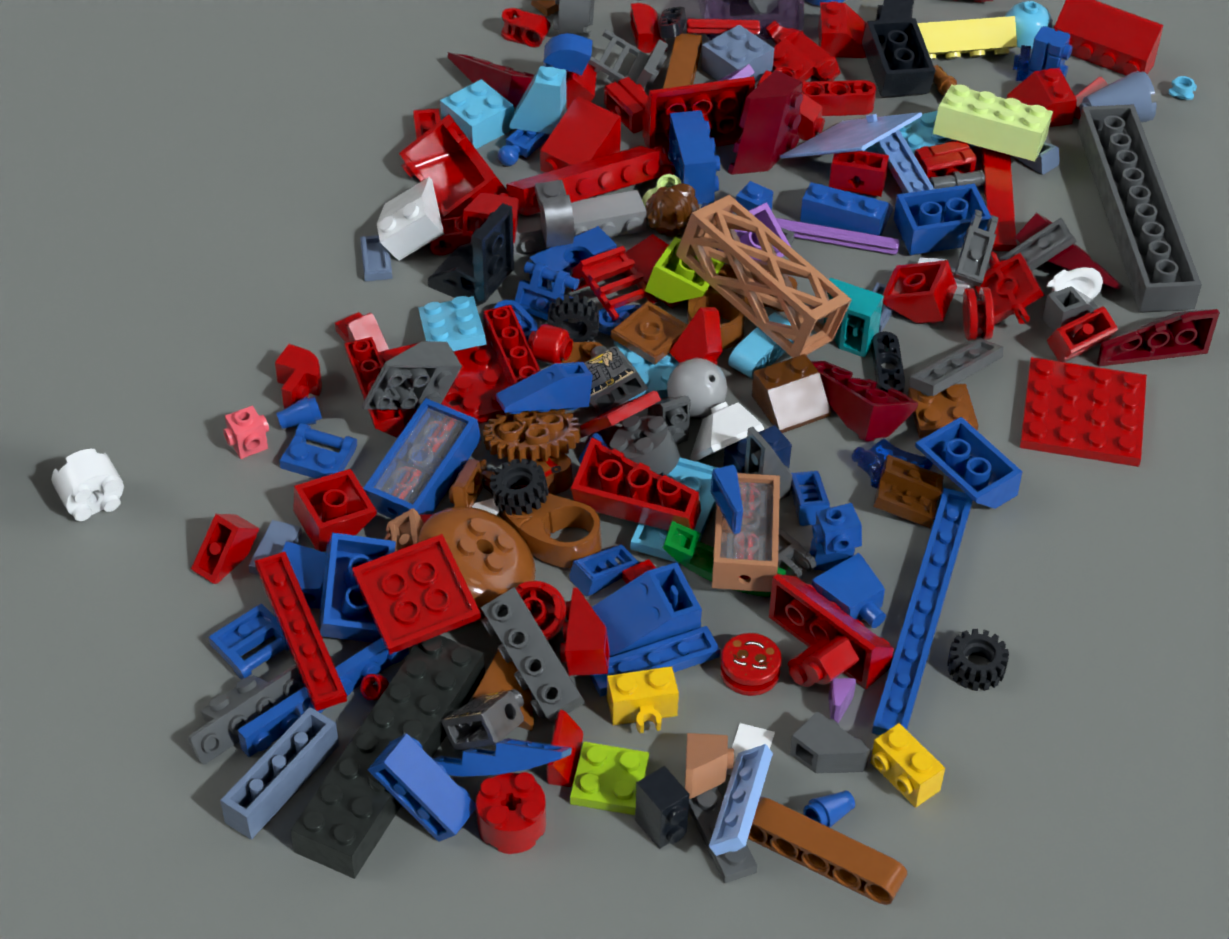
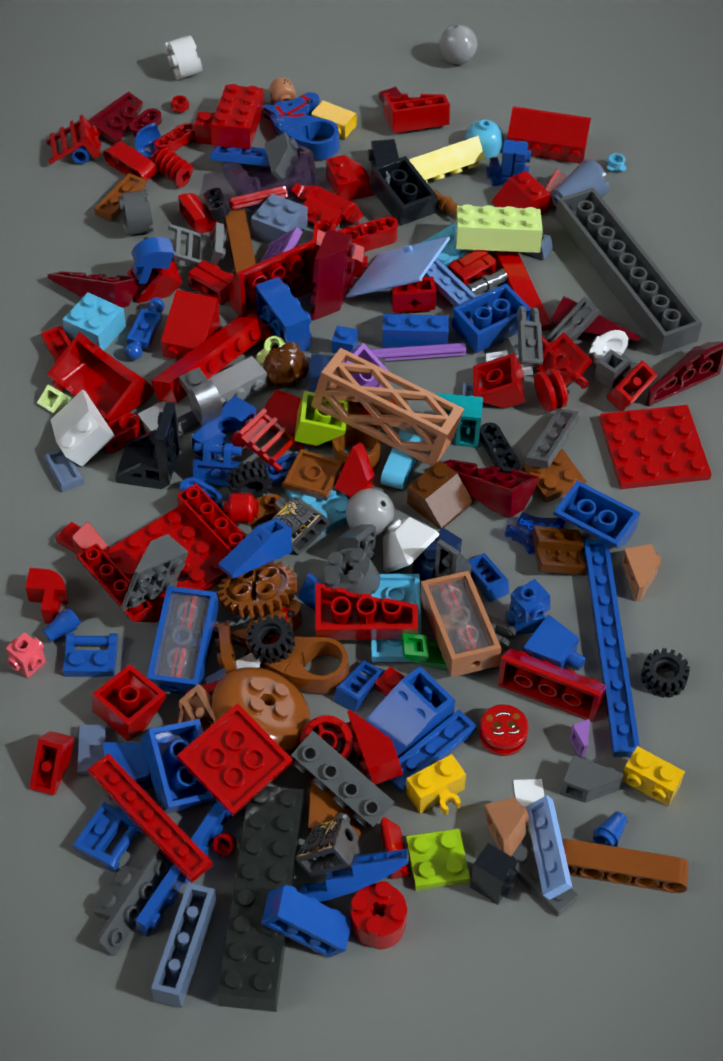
camera: 20 degrees left, 5 degrees up
(396, 182) = (53, 399): none -> yellowish green slope
(453, 323) = (154, 513): medium azure plate -> none
(480, 208) = (146, 410): red torso -> none
(525, 27) = (101, 236): red piece -> none
(542, 102) = (147, 302): medium azure slope -> none
(619, 413) = (322, 553): red tile -> none
(727, 495) = (442, 602): blue slope -> none
(822, 661) = (560, 713): red brick -> none
(1001, 538) = (640, 568): none -> nougat slope

